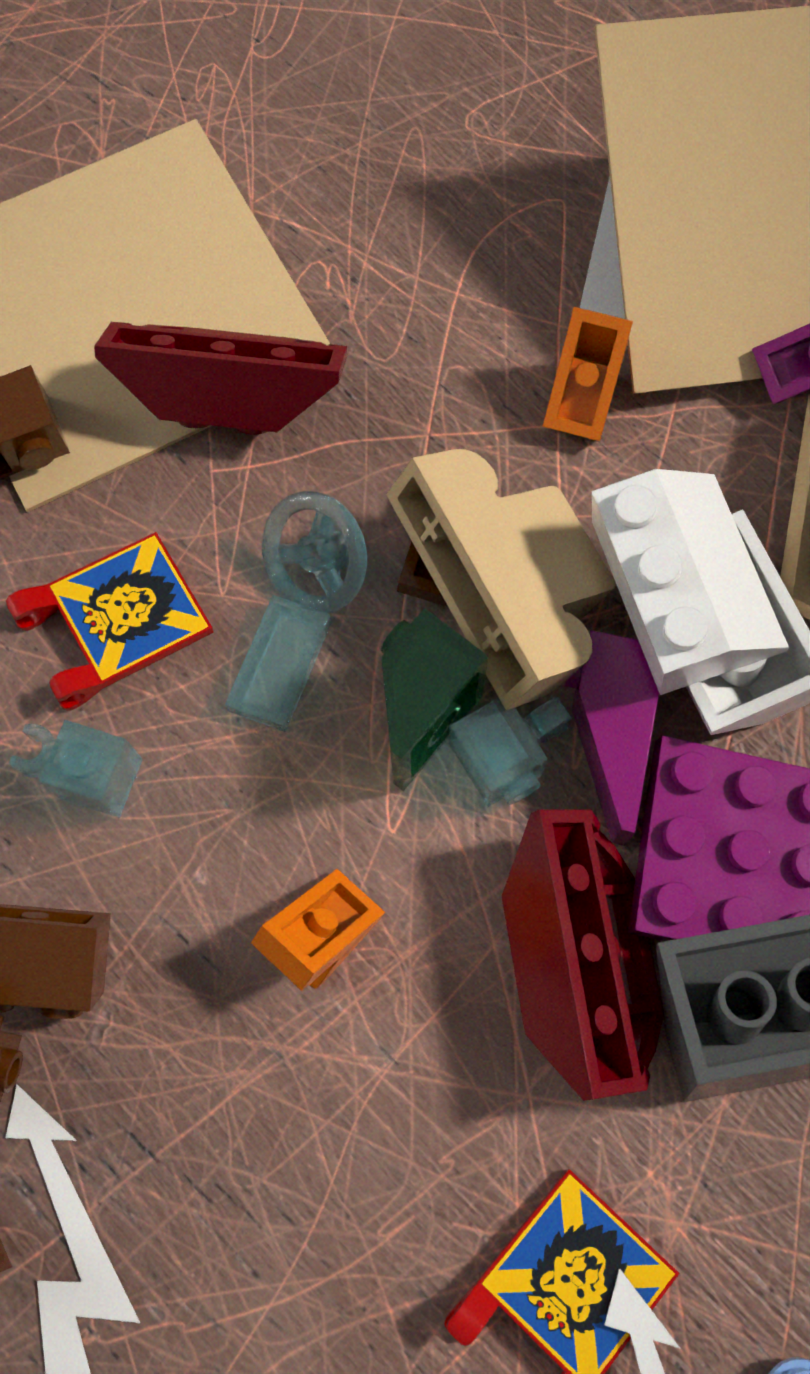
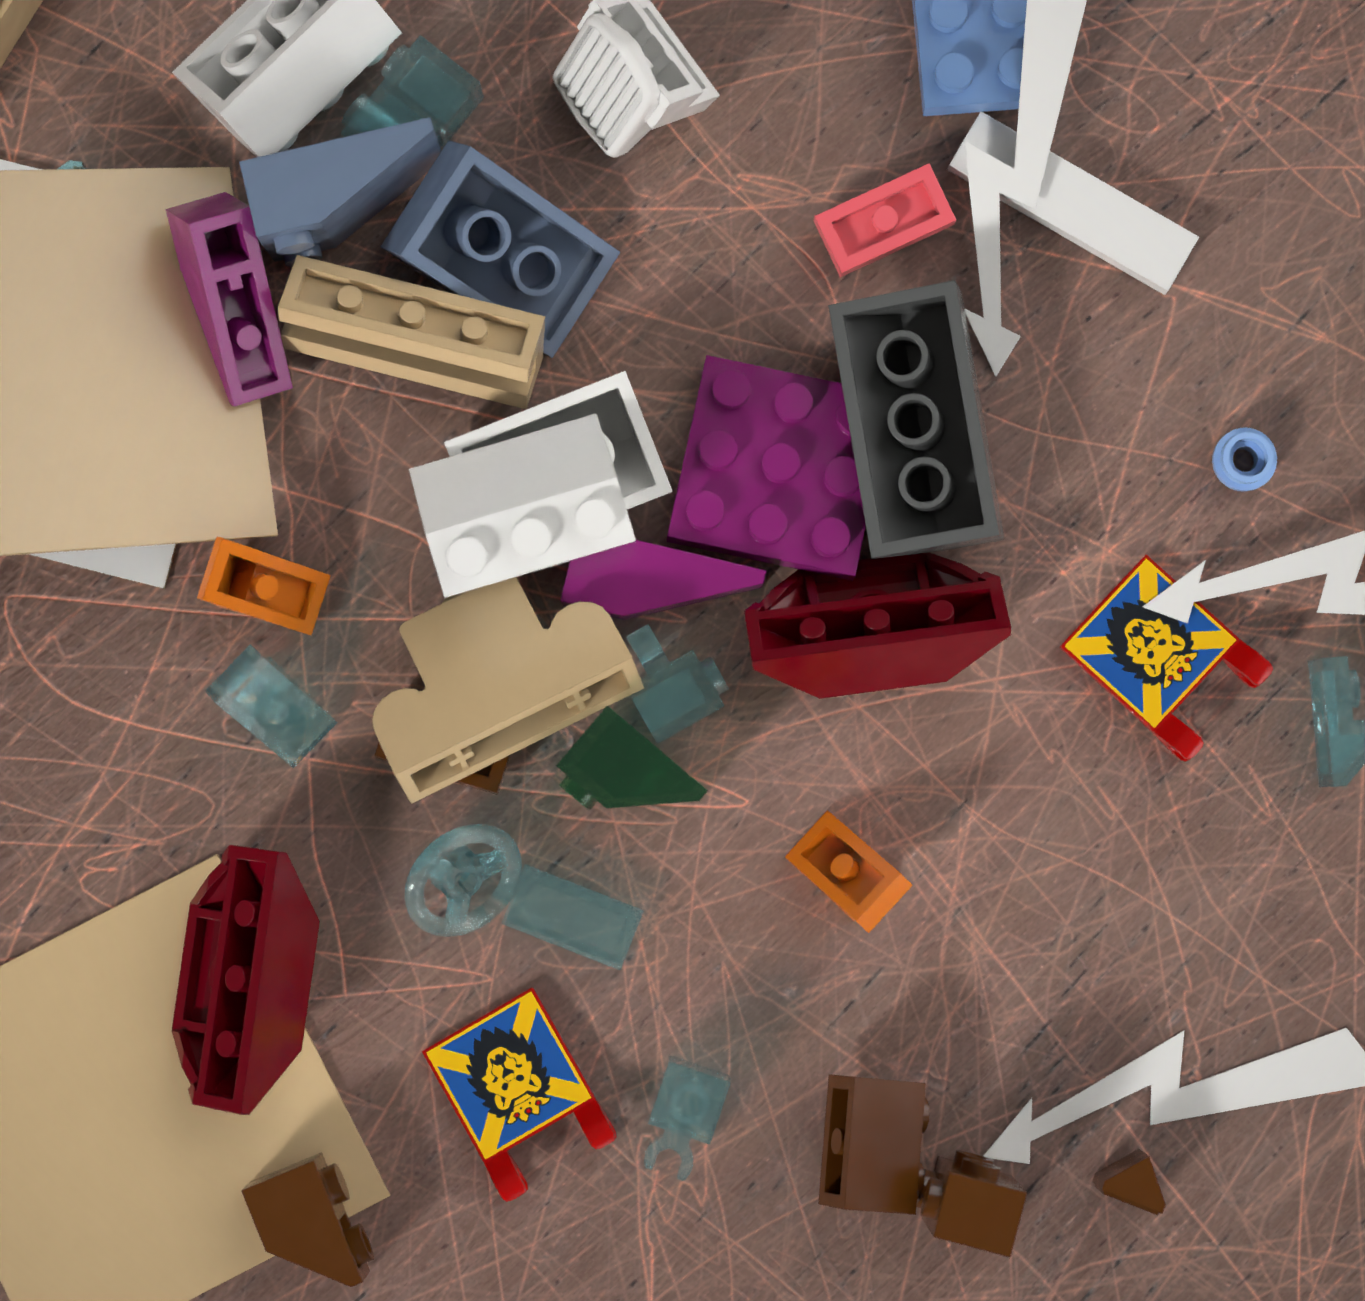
camera: 95 degrees left, 15 degrees up
(477, 387) = (271, 705): none -> clear light blue slope

